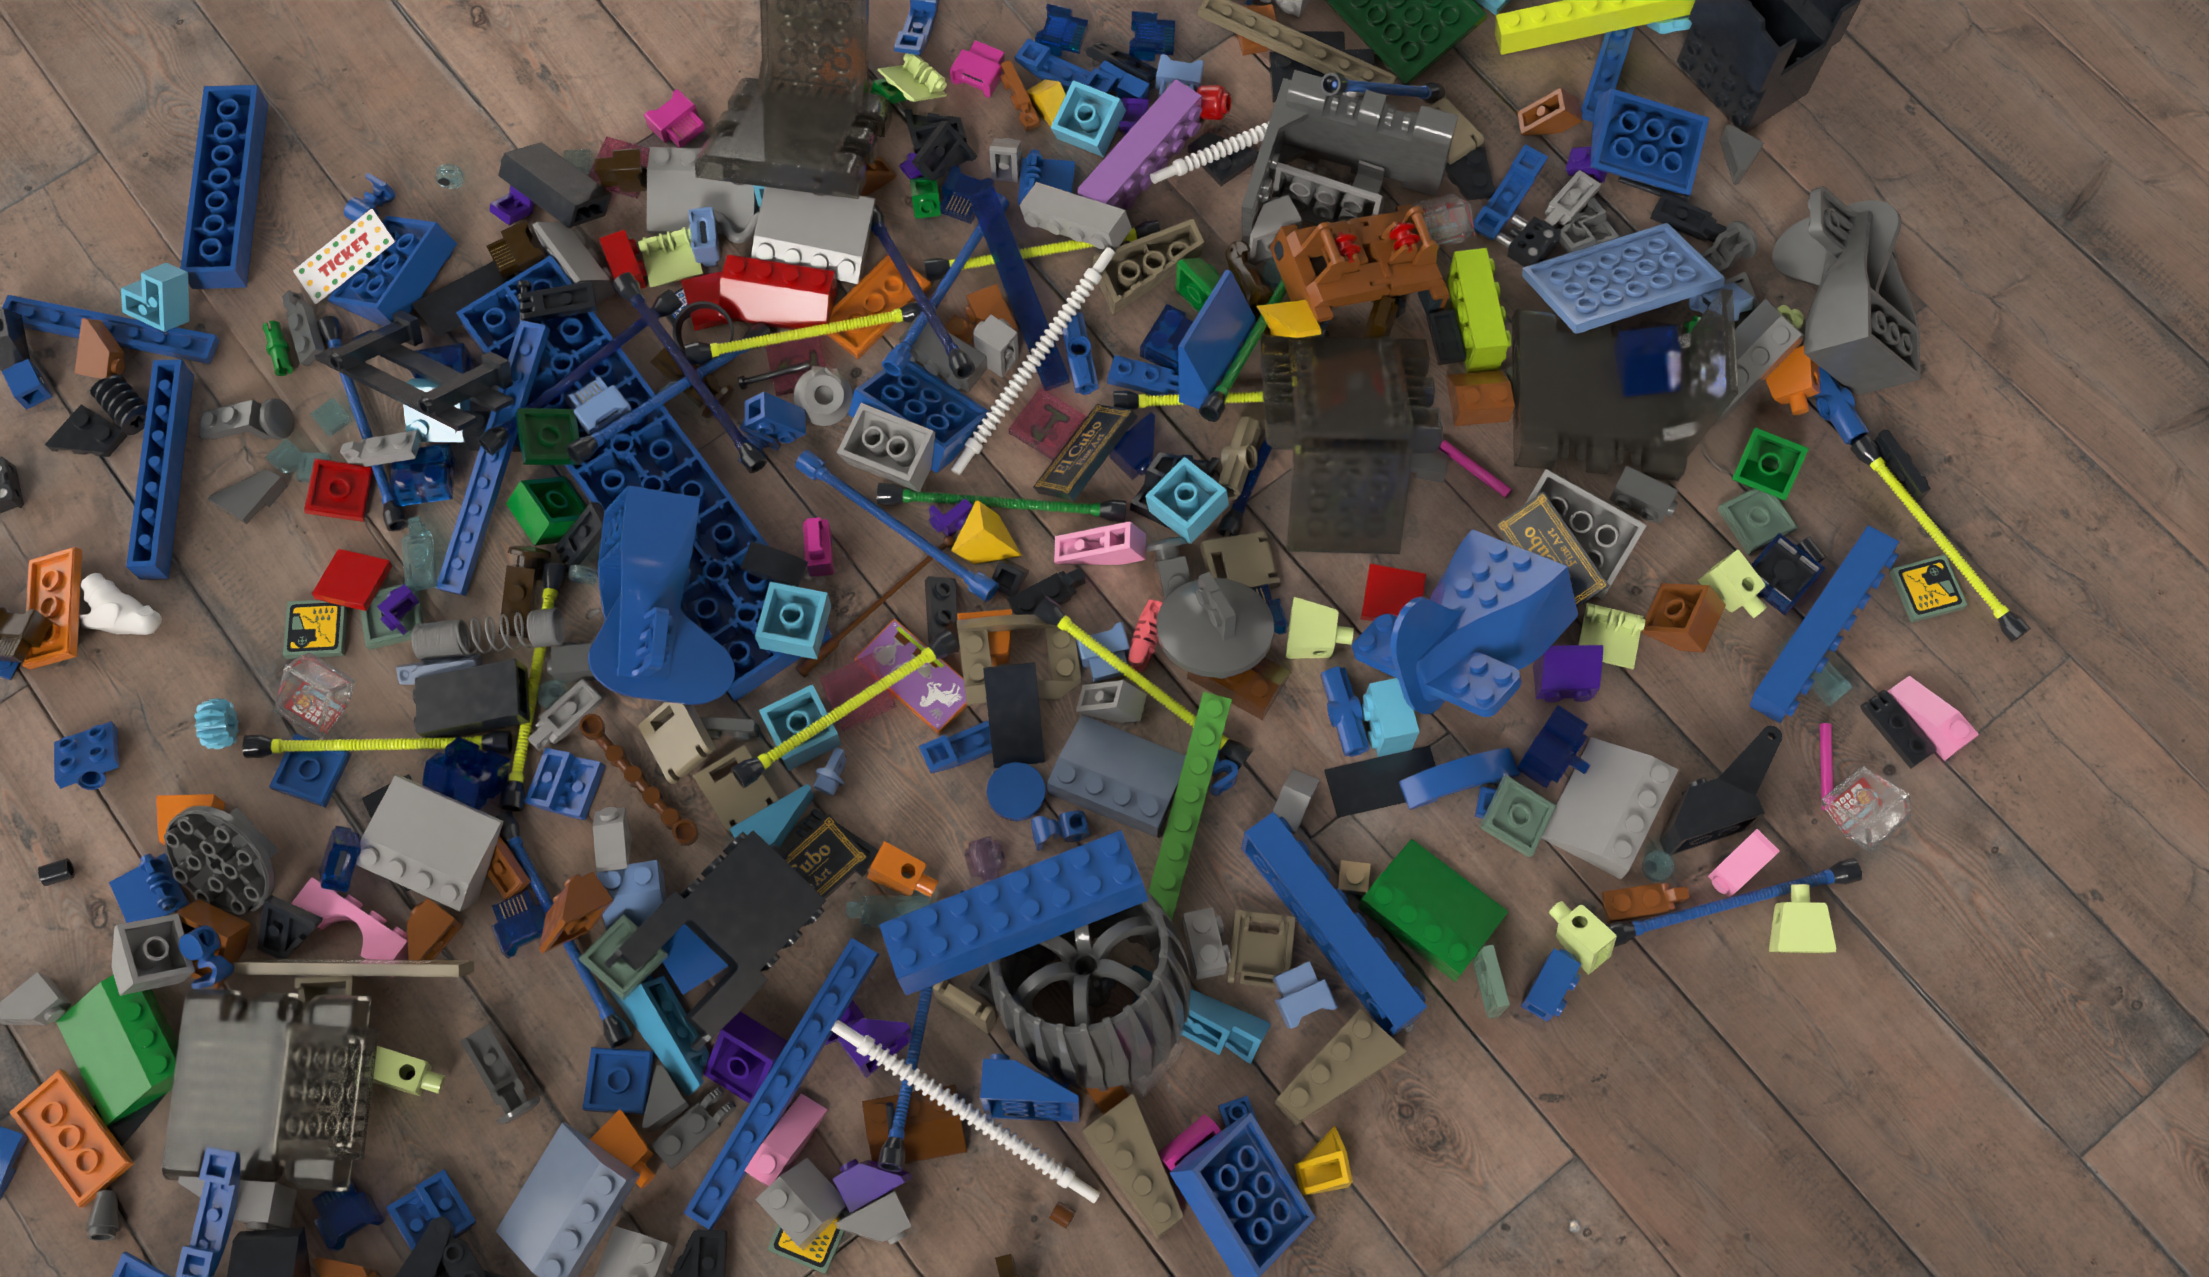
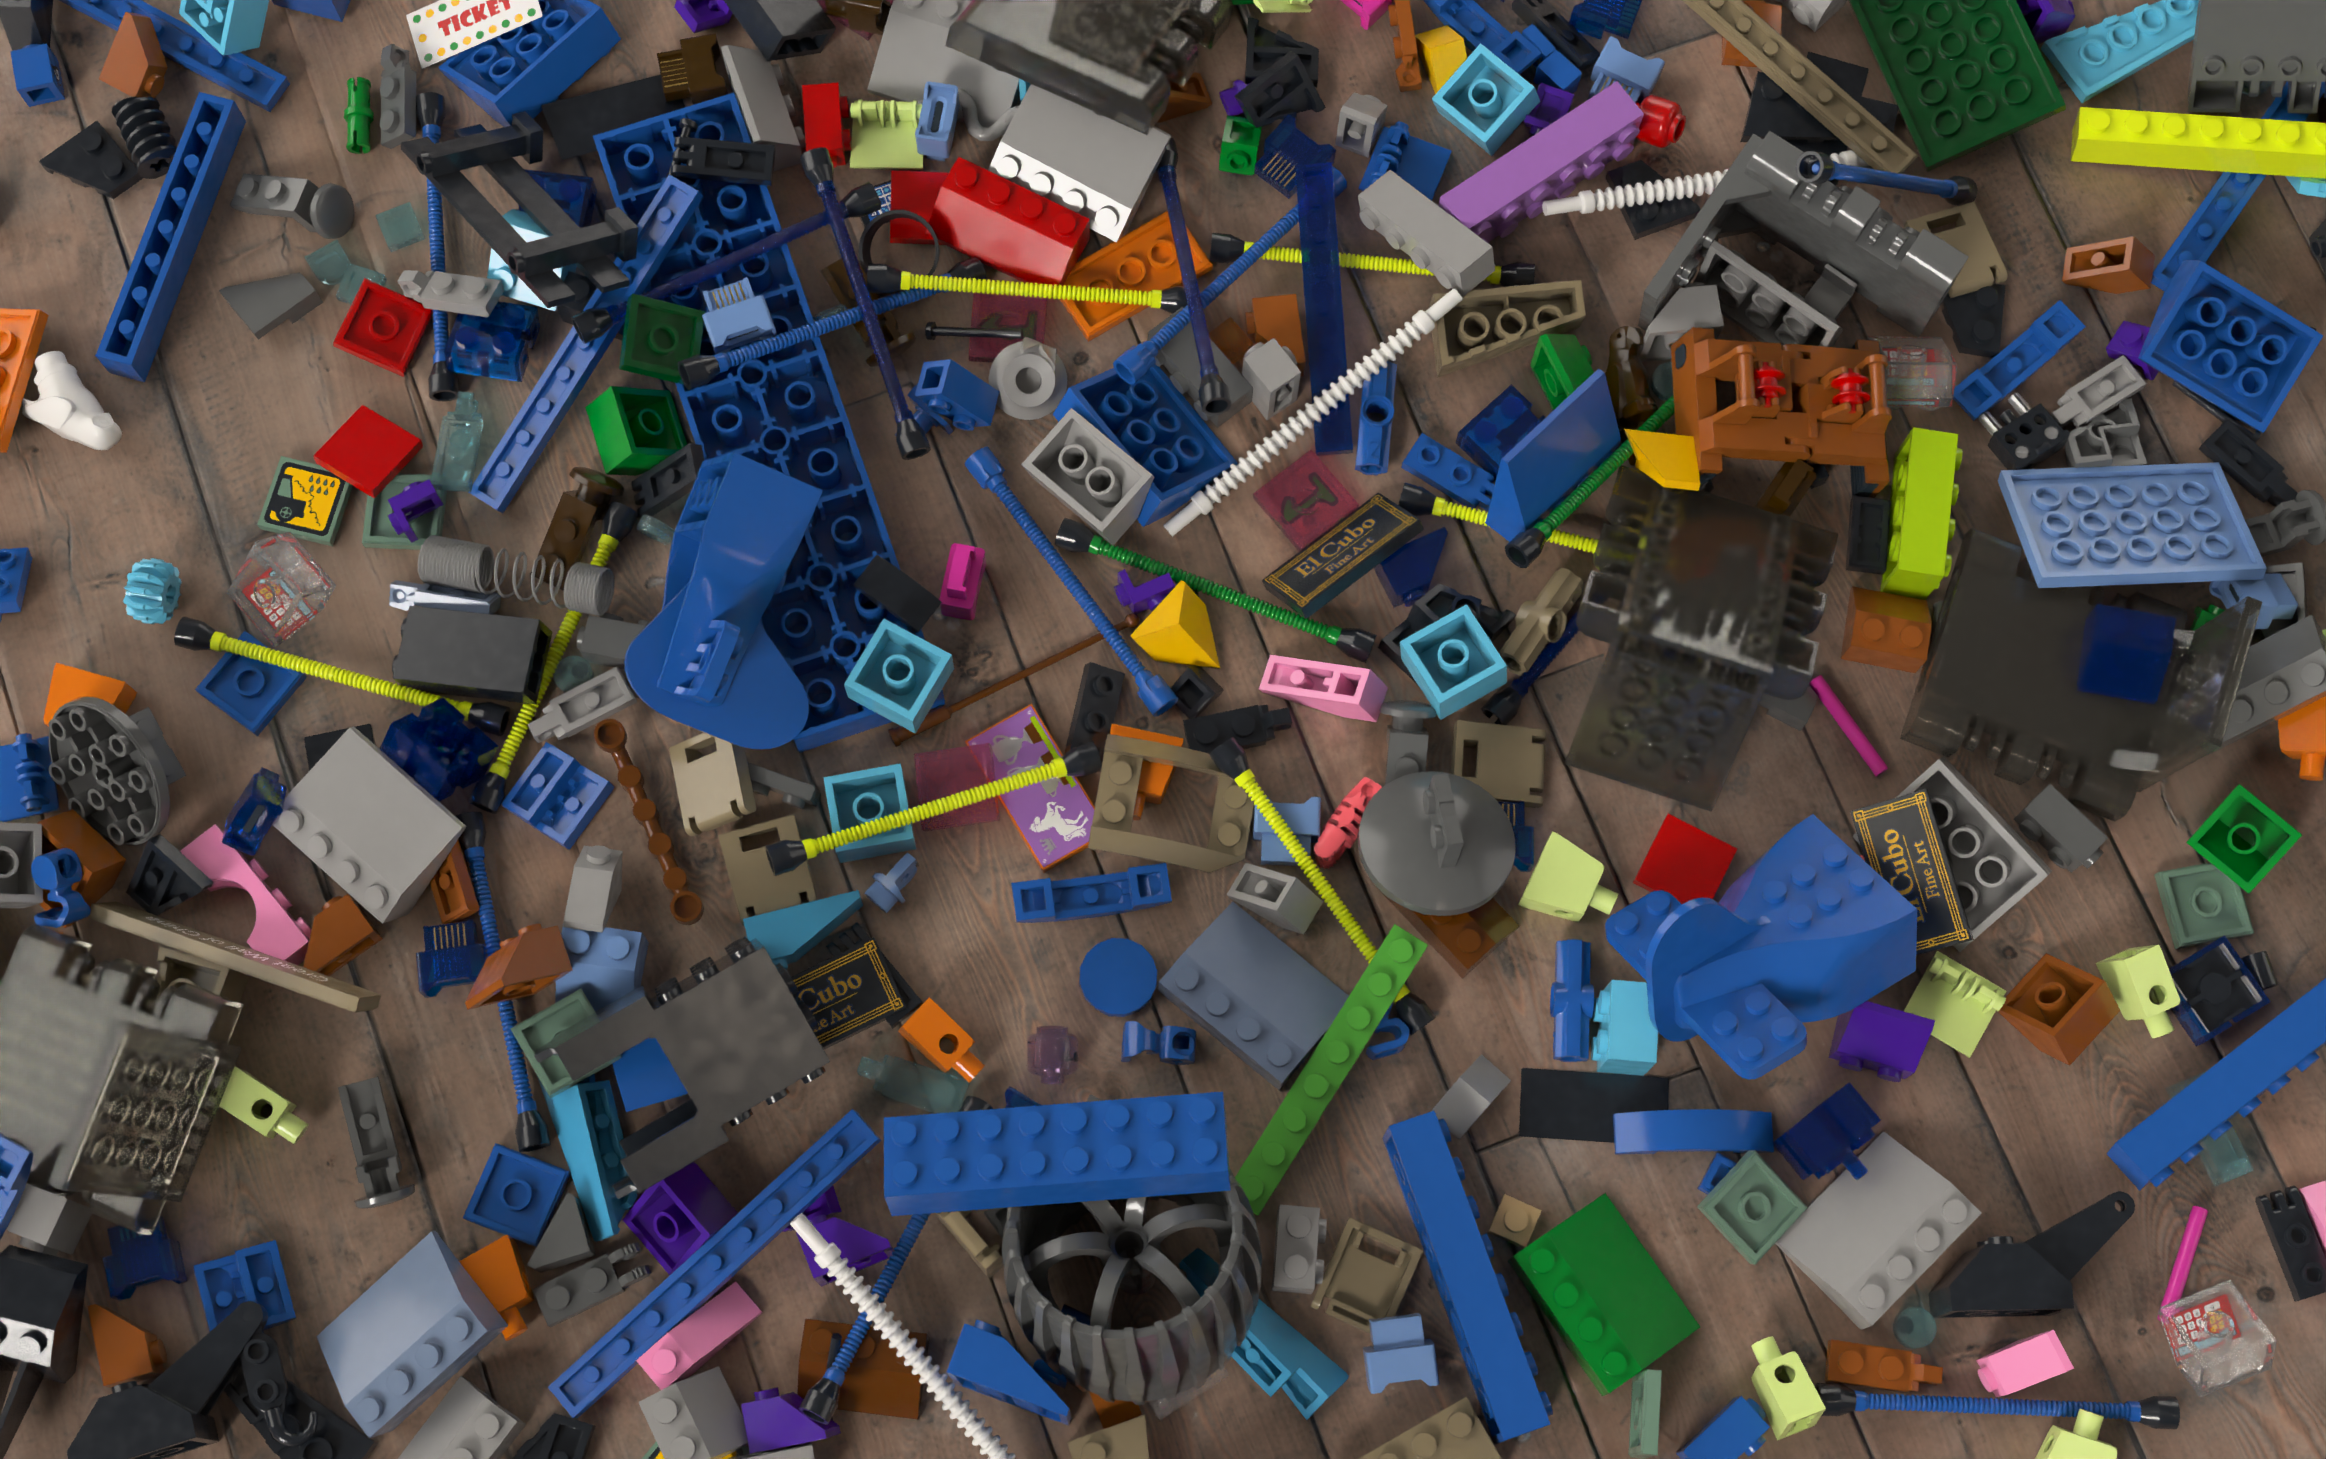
camera: 15 degrees right, 5 degrees up
(1014, 714) = (1144, 880): black sticker -> none

